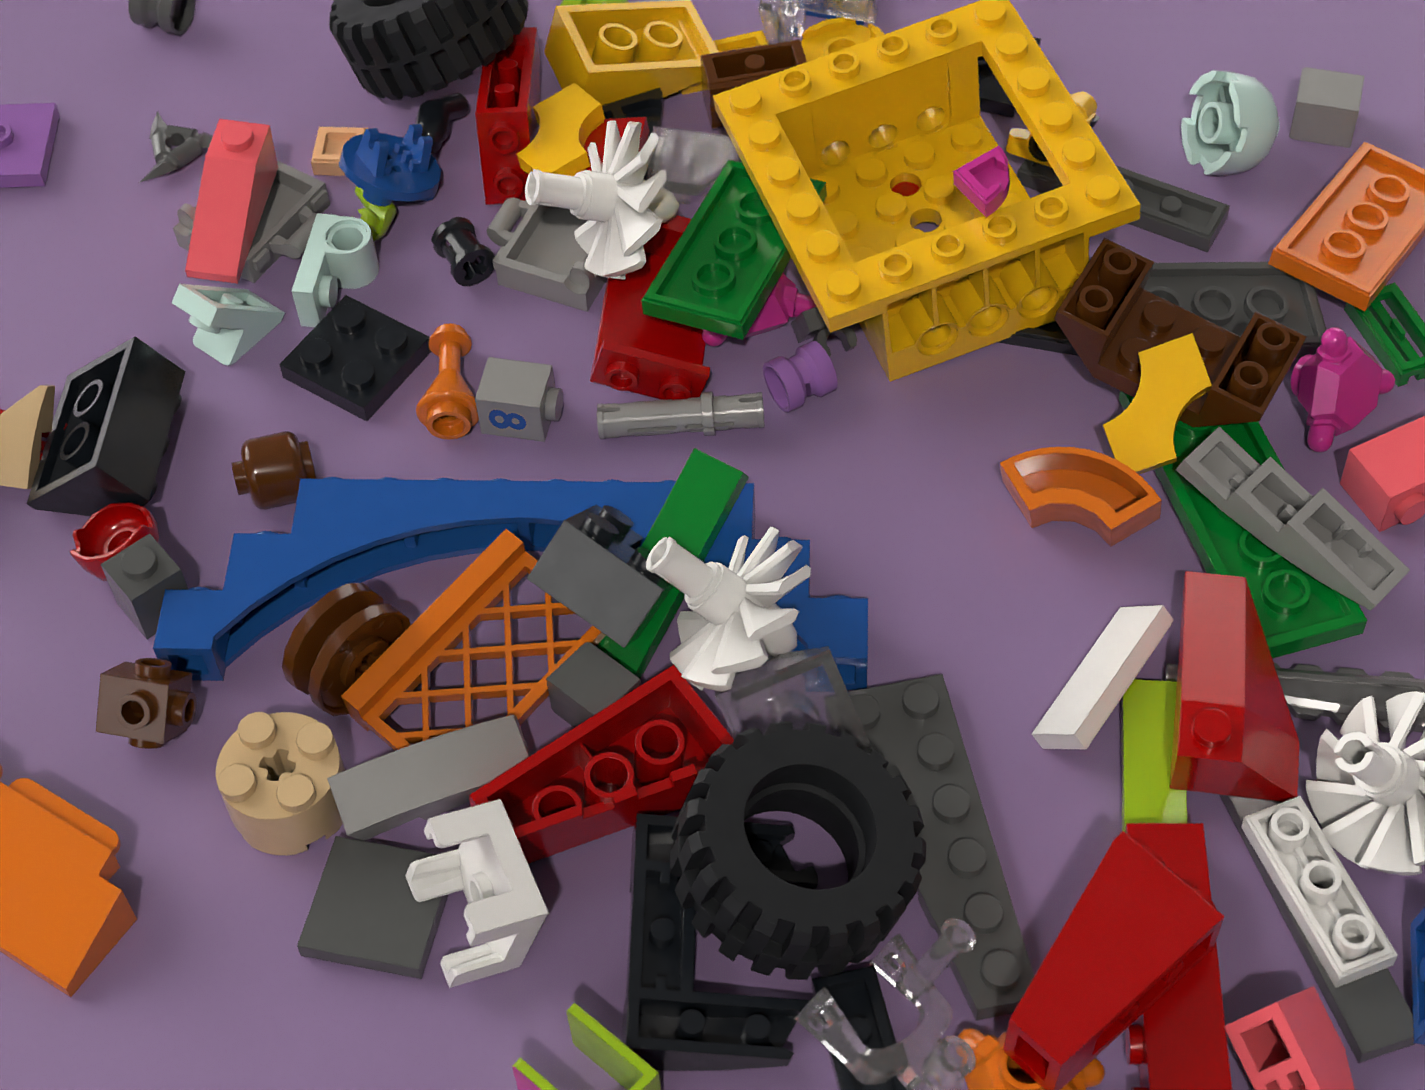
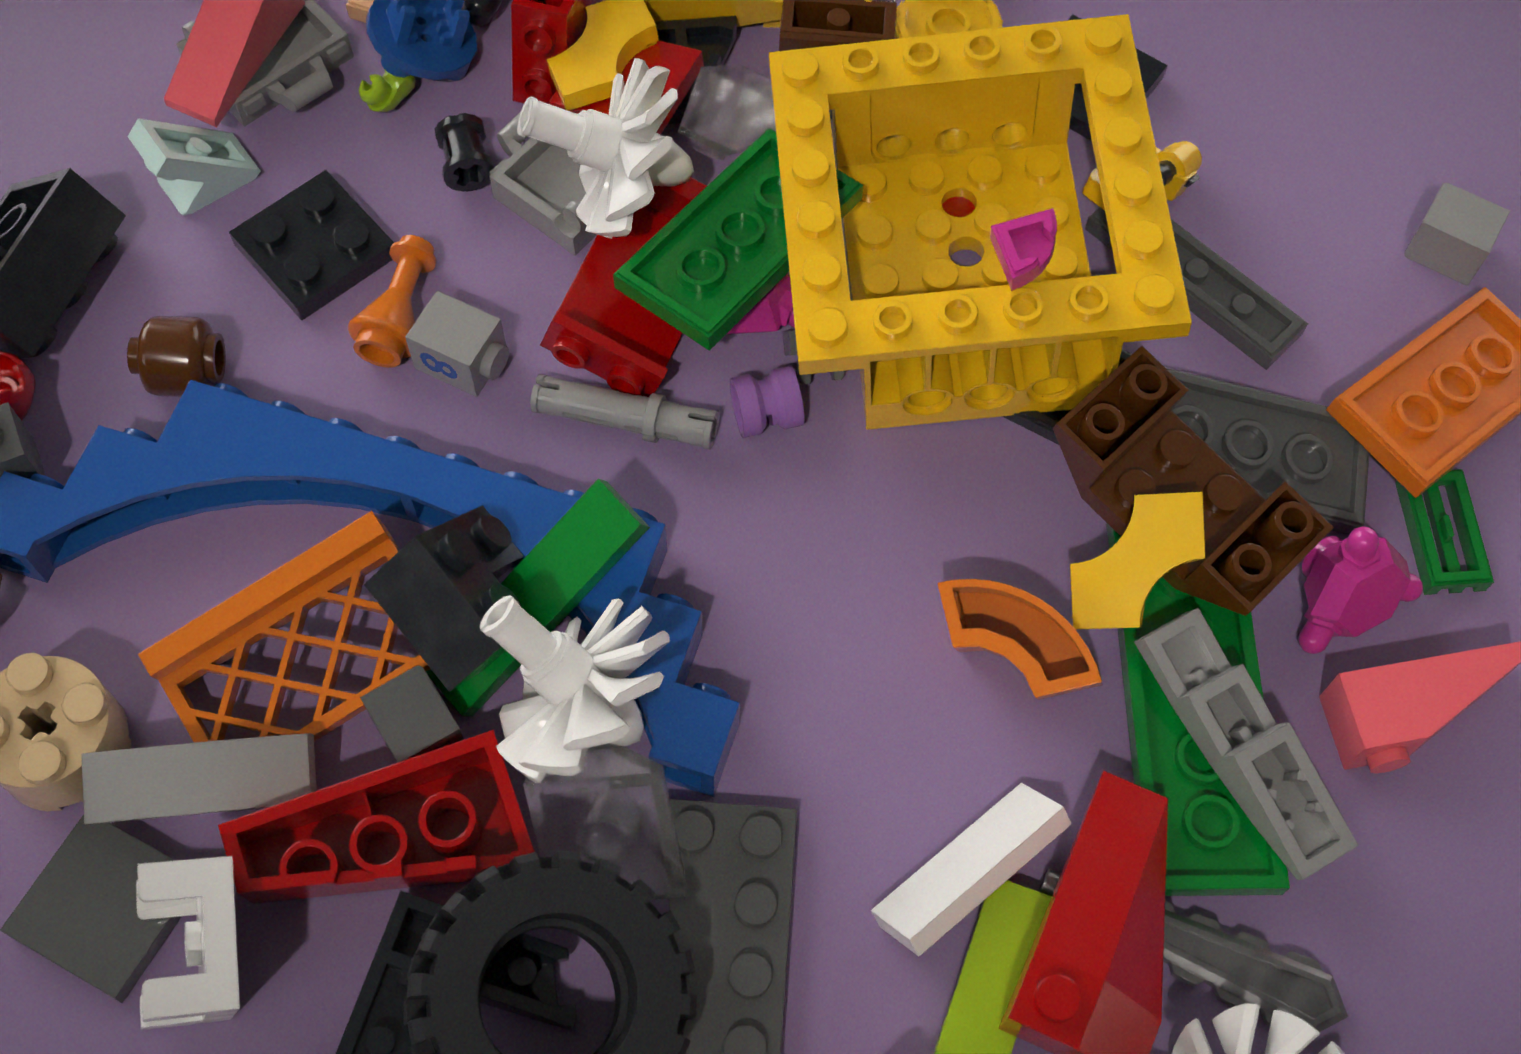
camera: 10 degrees right, 10 degrees up
(335, 257) = (327, 120): light aqua plate -> none
(339, 643) = (156, 591): reddish brown wheel -> none
(1229, 123) = (1340, 226): light aqua cylinder -> none

